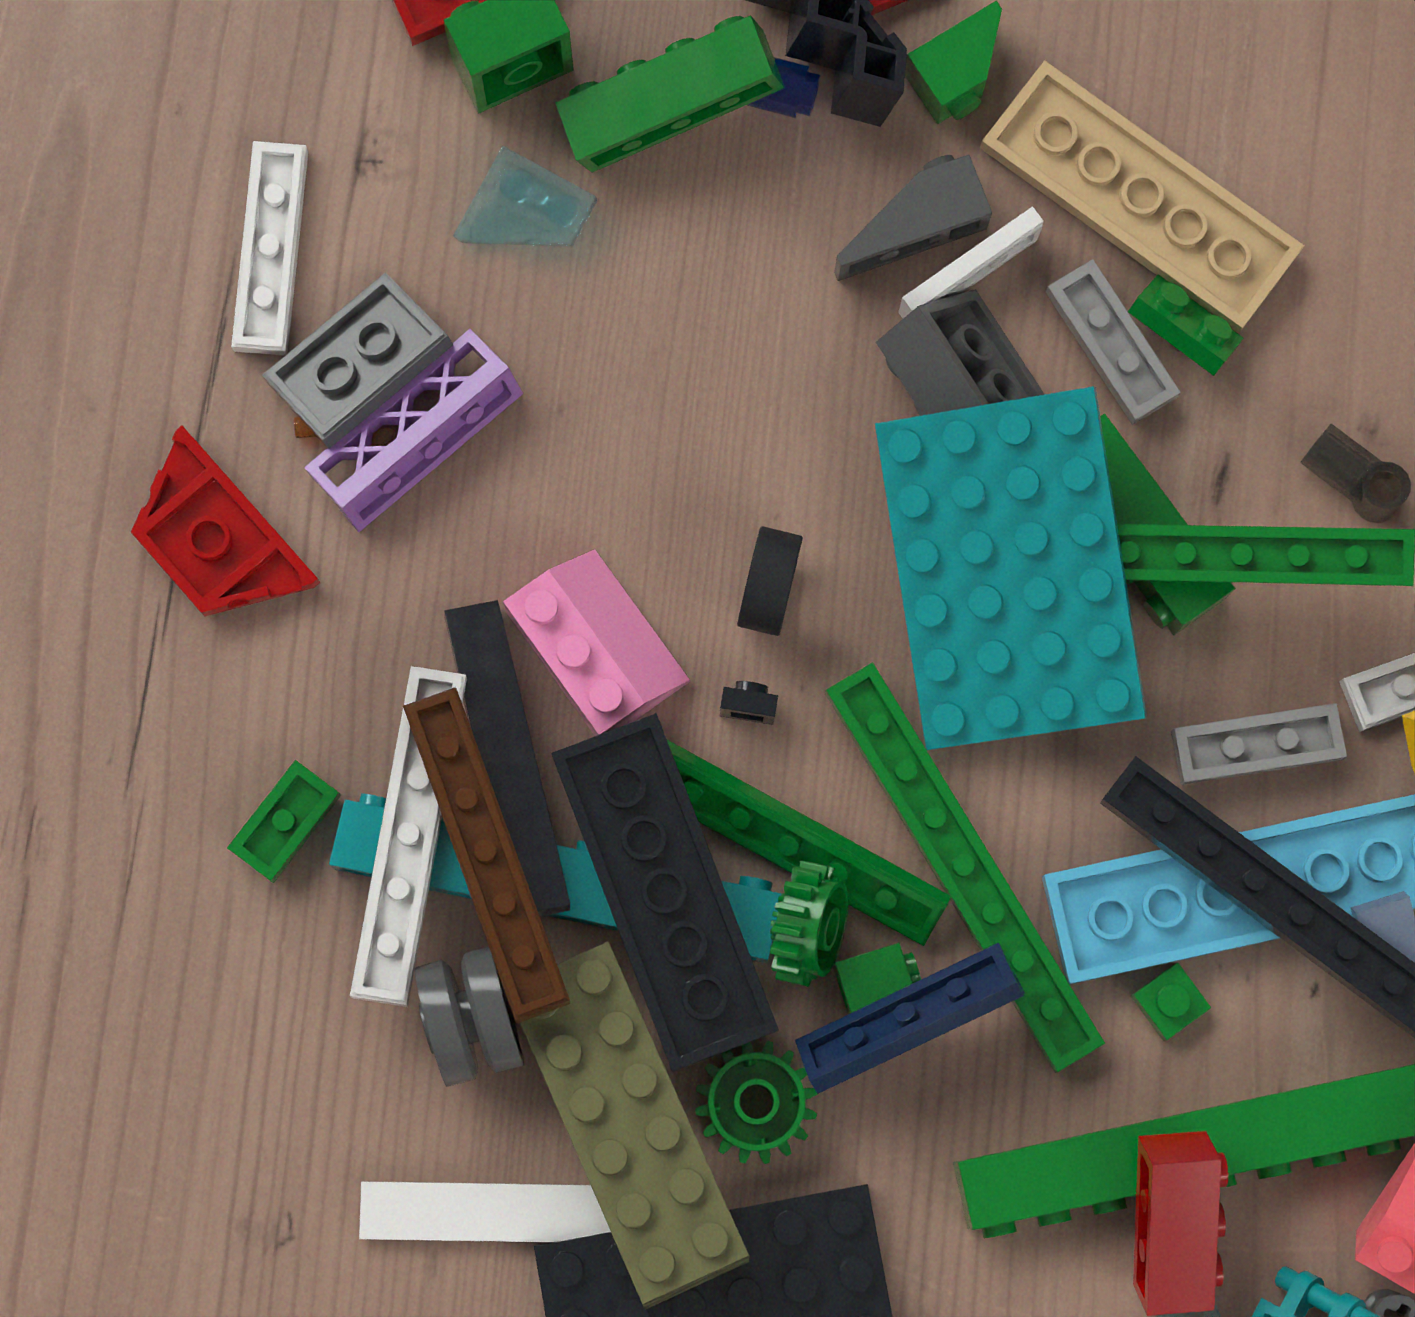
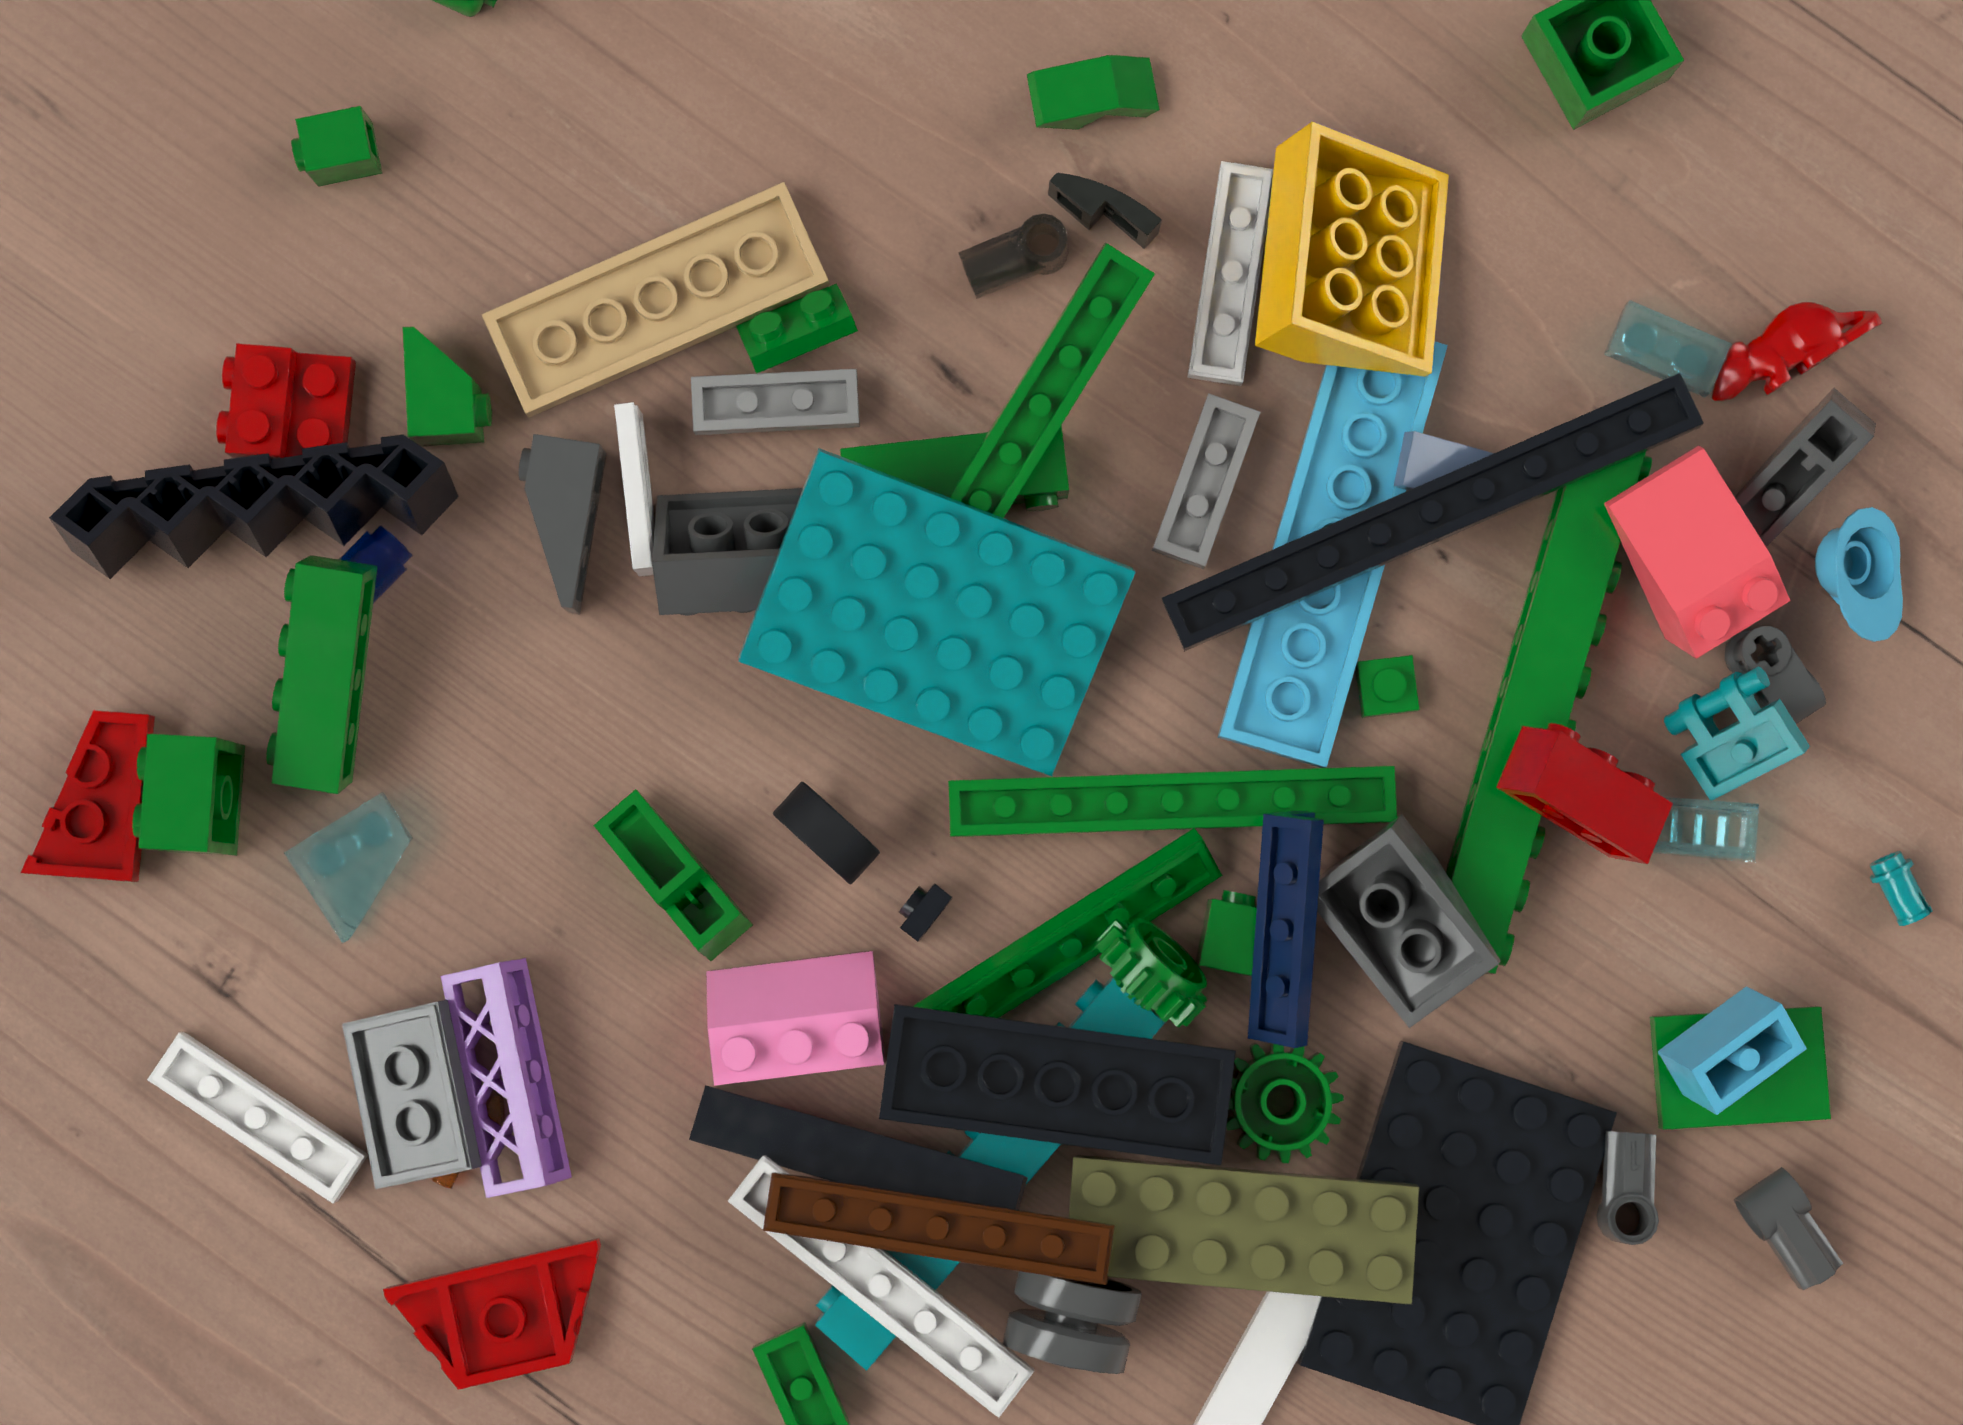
camera: 60 degrees left, 5 degrees up
(660, 476) = (673, 875): none -> green slope
(974, 1120) = (1404, 921): none -> dark grey slope

